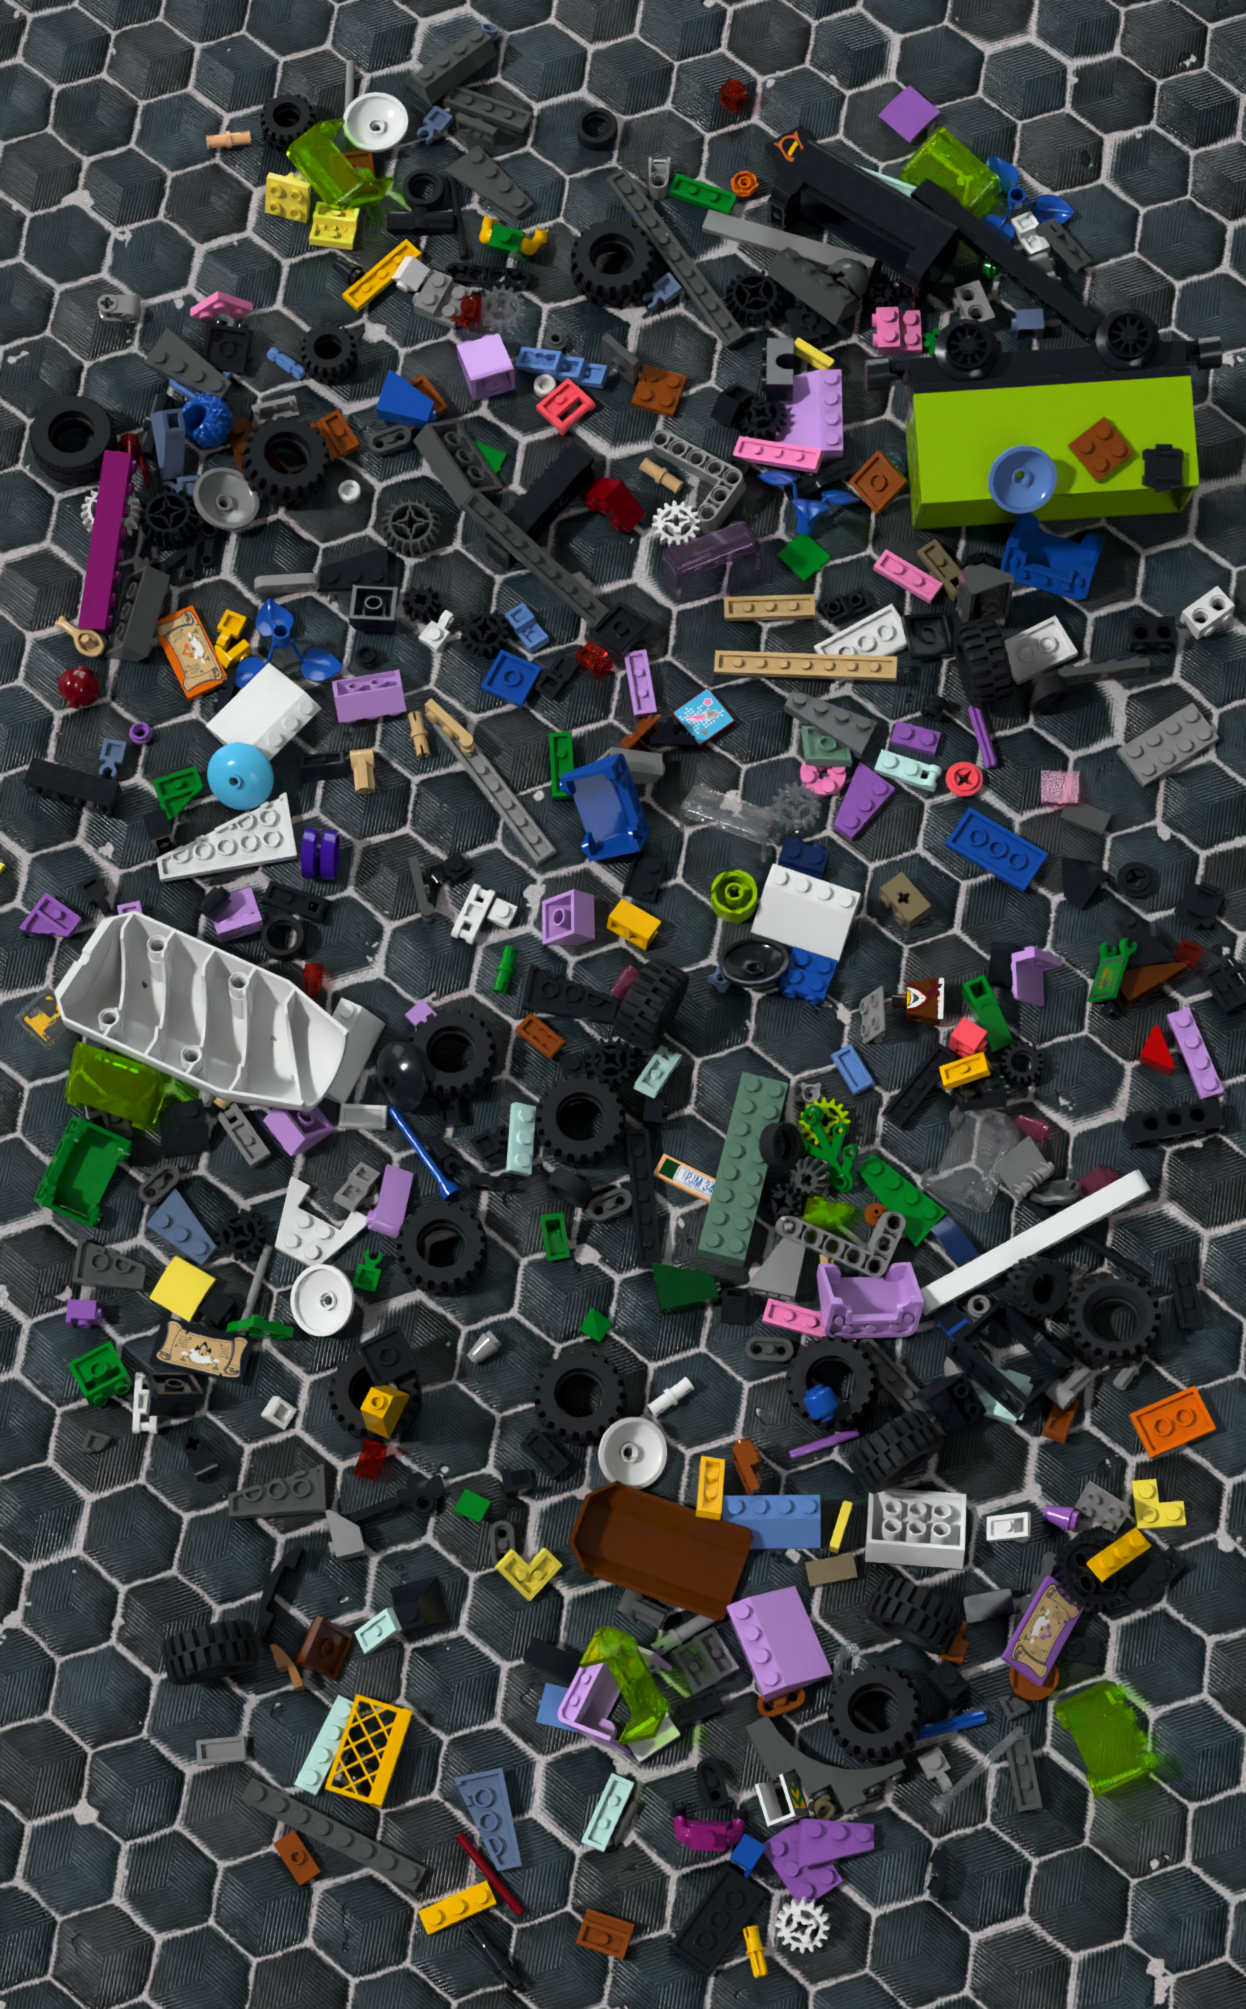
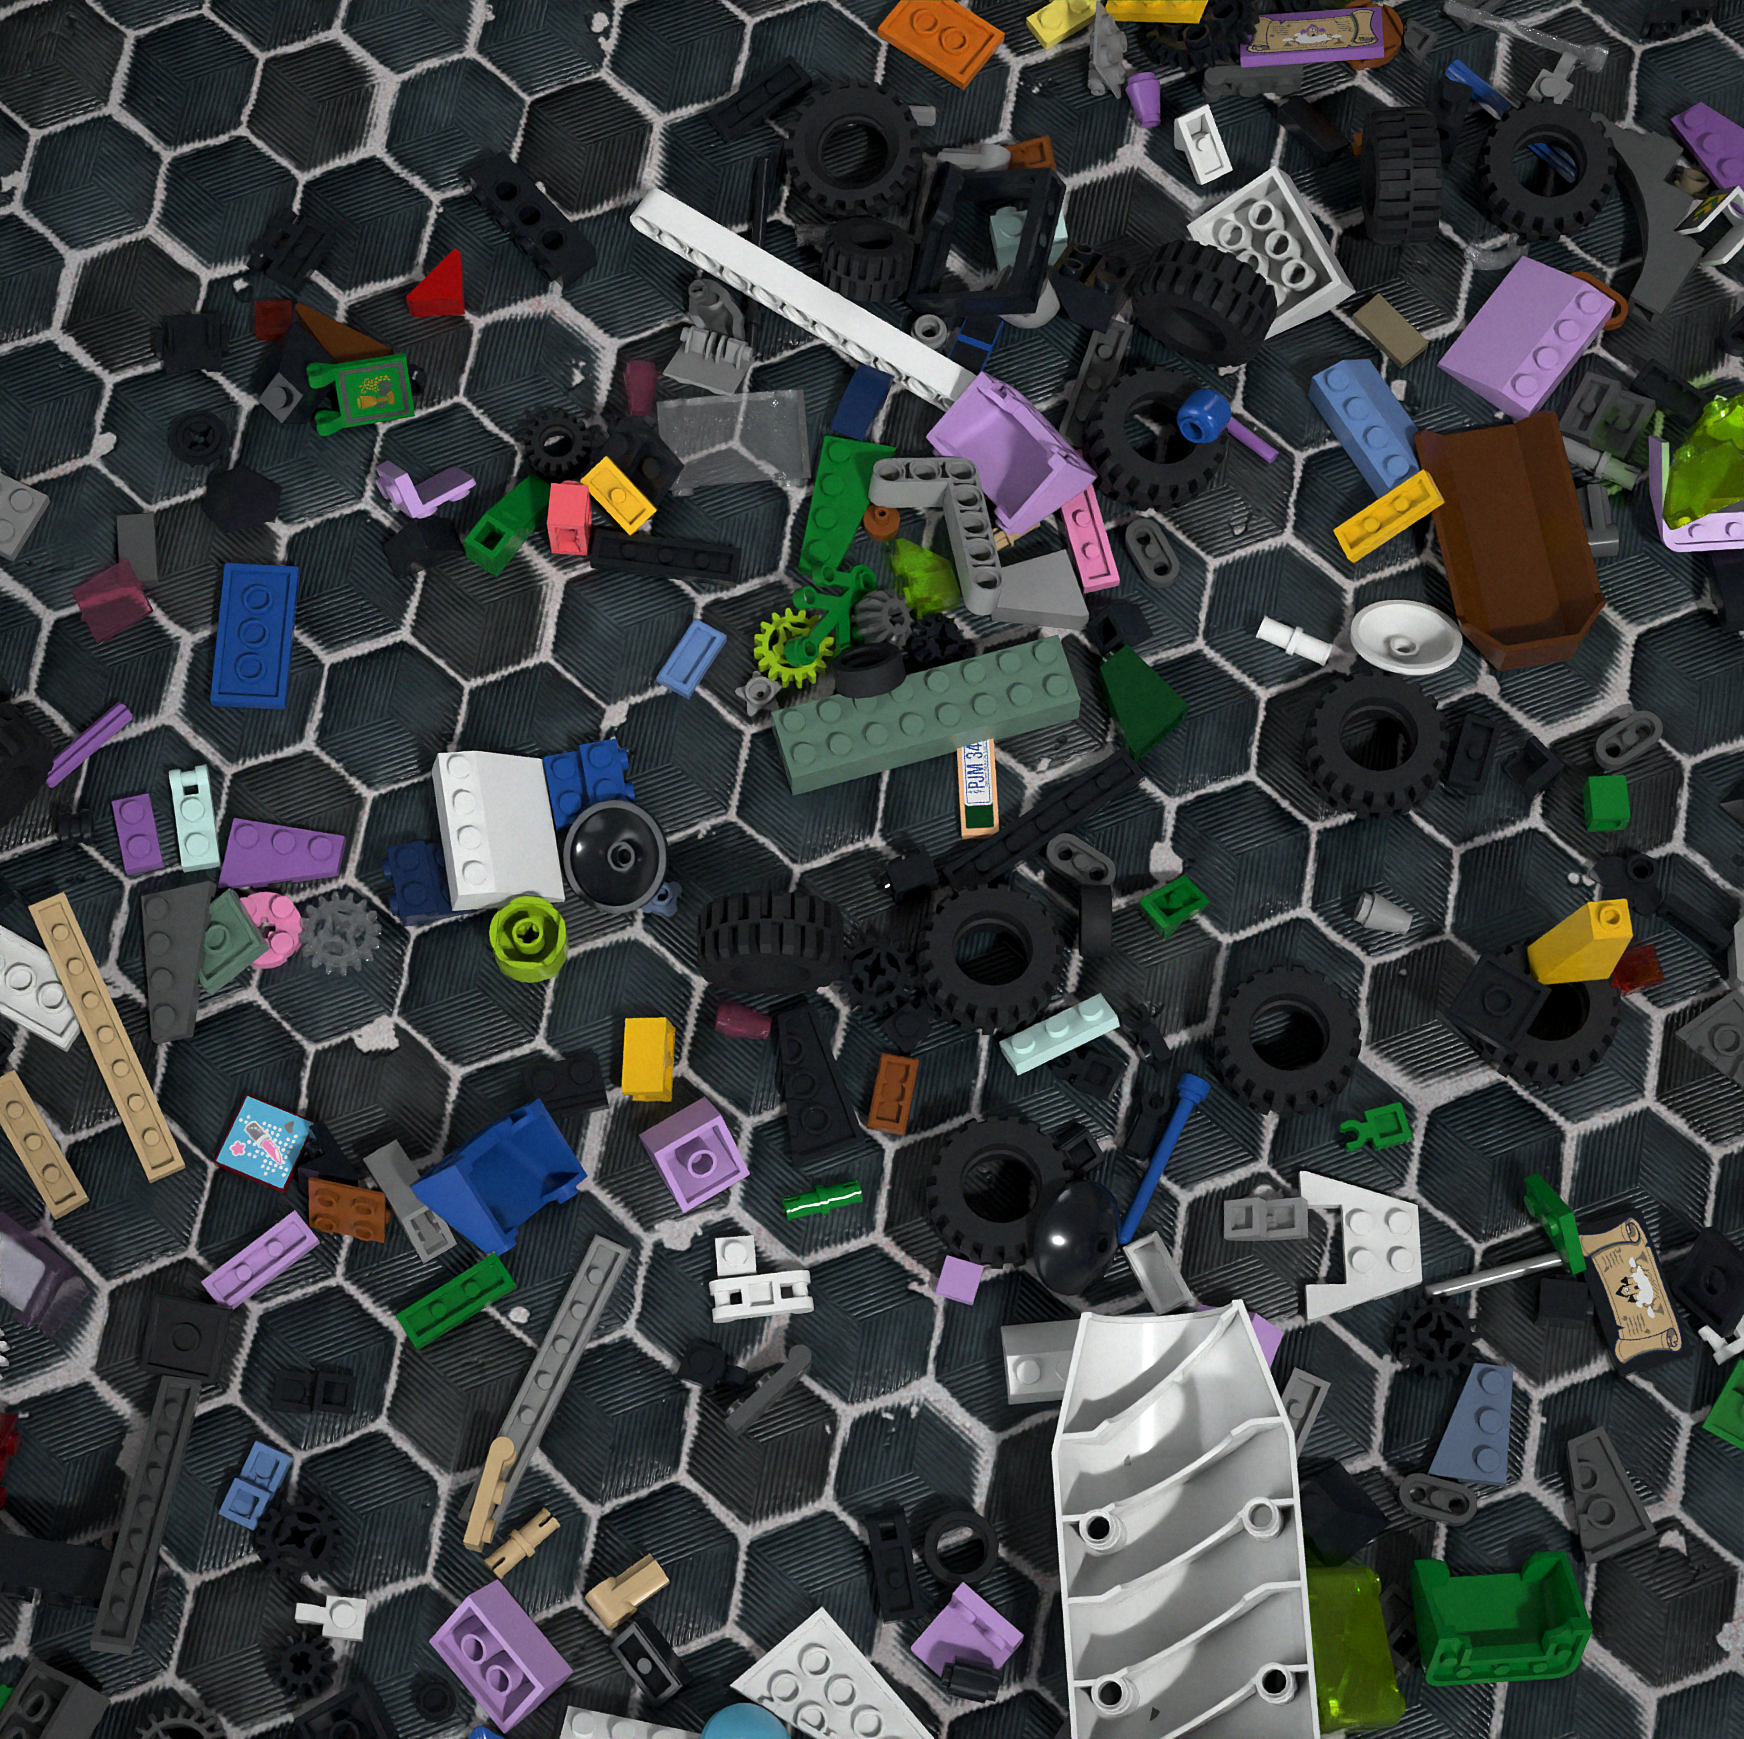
camera: 125 degrees left, 0 degrees up
(83, 1313) = (1689, 1488): medium lavender brick -> none
(182, 1288) = (1562, 1372): light yellow slope -> none
(279, 1412) = (1644, 1139): white slope -> none
(311, 1300) = (1477, 1165): white dish -> none
(313, 979) = (995, 1467): clear red cone -> none
(318, 853) = (805, 1563): dark purple wheel -> none
(392, 1202) = (1279, 1142): lavender door -> none
(511, 678) = (355, 1457): blue plate -> none
(531, 1577) = (1650, 680): light yellow plate -> none
(594, 659) = (256, 1352): clear red bracket -> none
(595, 1325) = (1257, 792): green slope -> none
(657, 1071) = (863, 893): light aqua plate -> none
(730, 815) = (418, 1002): clear windscreen -> none
(747, 1461) = (1331, 484): dark orange plate -> none
(840, 1526) = (1329, 343): light yellow tile -> none
(873, 1017) = (602, 659): light grey hinge -> none
(902, 889) = (403, 694): dark tan brick -> none
(922, 1001) = (539, 613): torso -> none
(963, 769) = (158, 722): coral gear -> none
(1097, 1179) = (669, 272): clear pink bracket -> none
(1195, 1053) = (414, 248): lavender plate -> none

